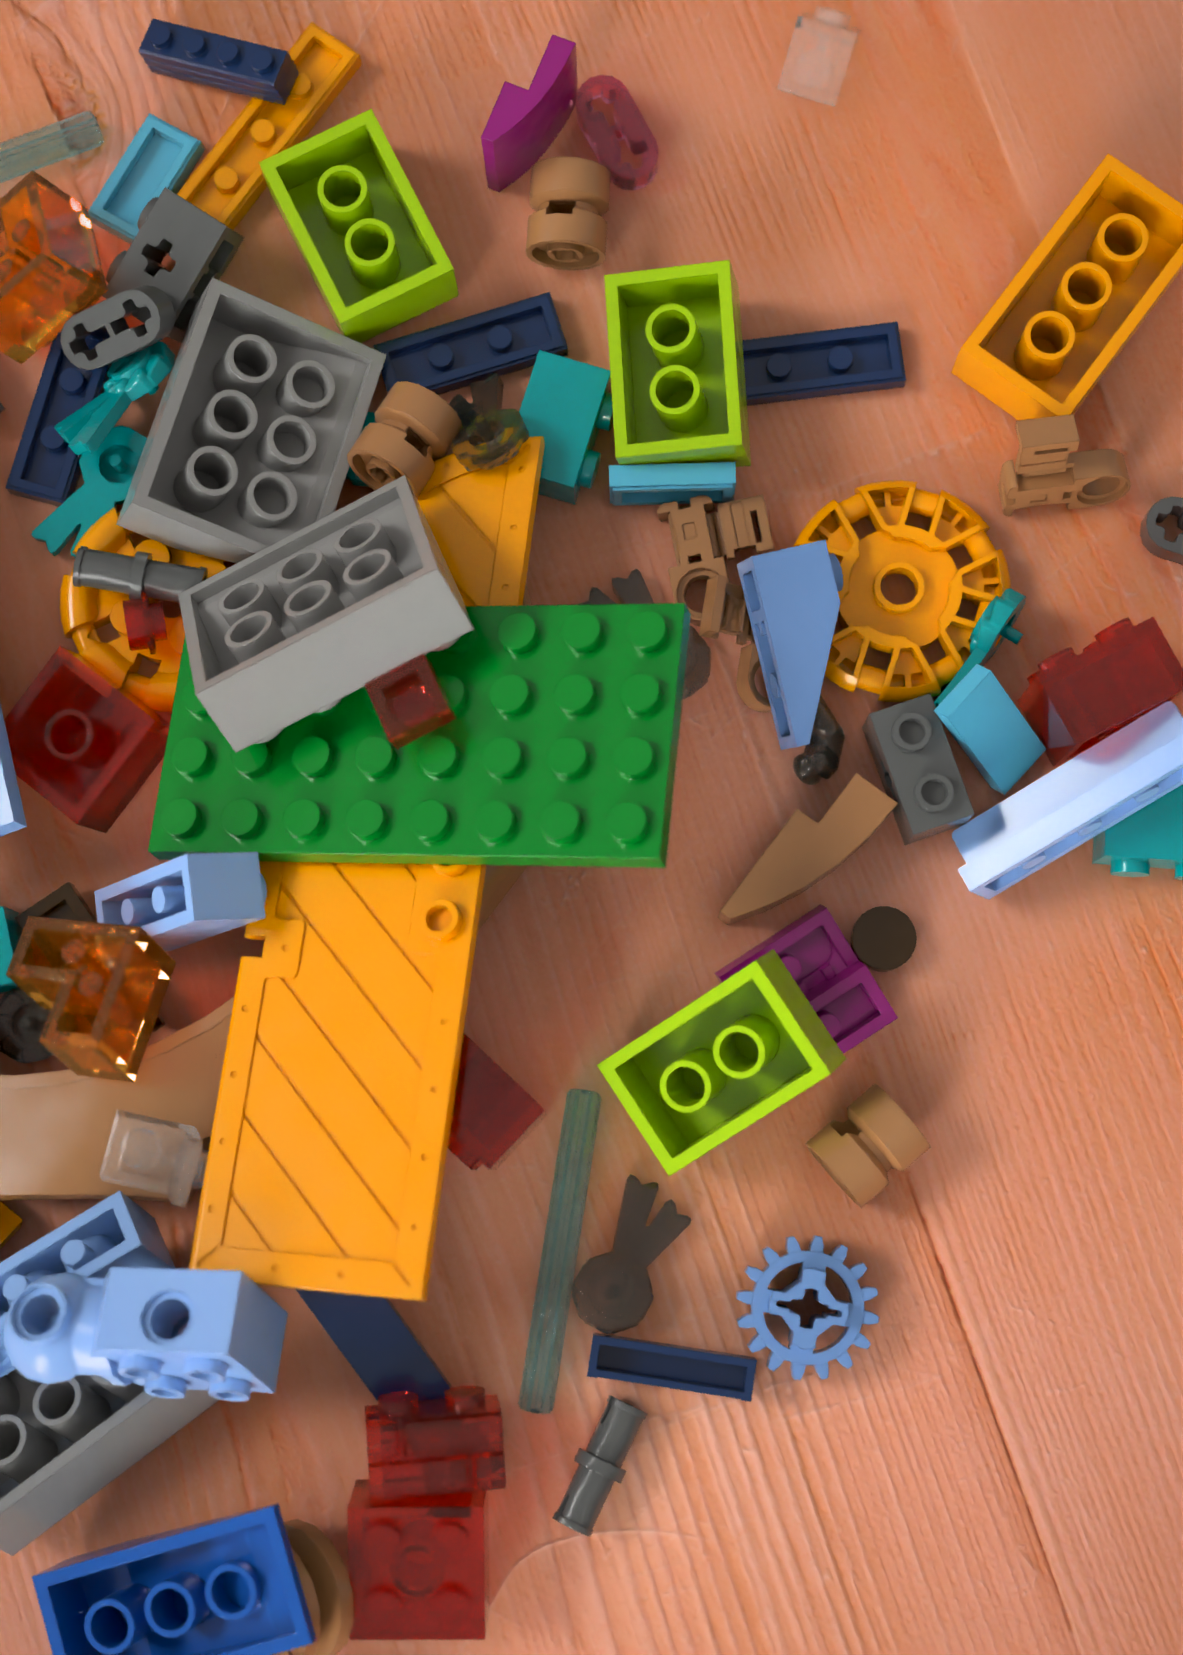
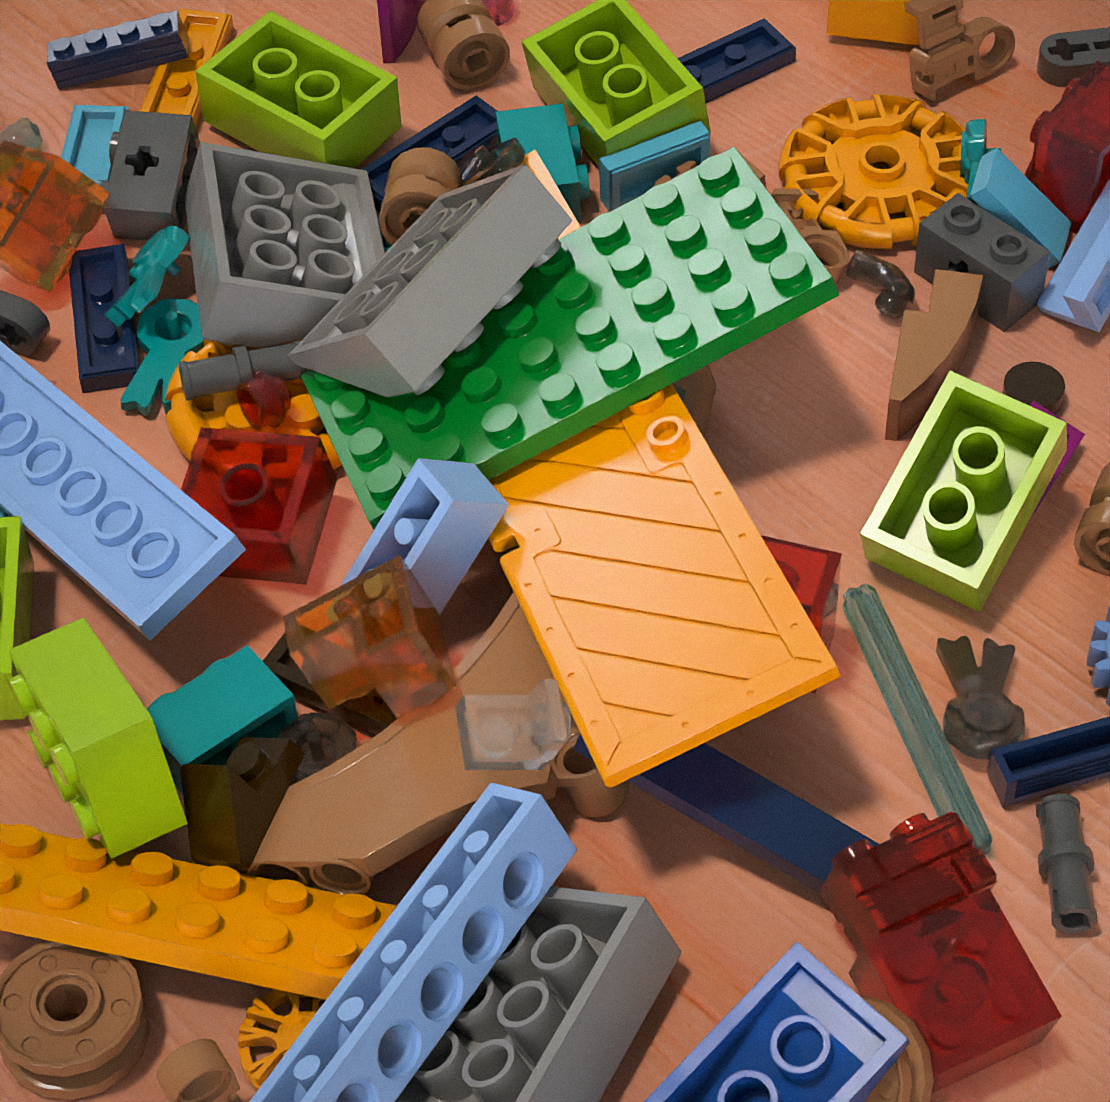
camera: 30 degrees left, 30 degrees down
(112, 315) = (140, 227): dark grey beam -> none
(150, 1330) = (613, 827): light blue brick -> none
(410, 701) = (549, 289): clear red plate -> none
(793, 622) = (822, 198): medium blue slope -> none

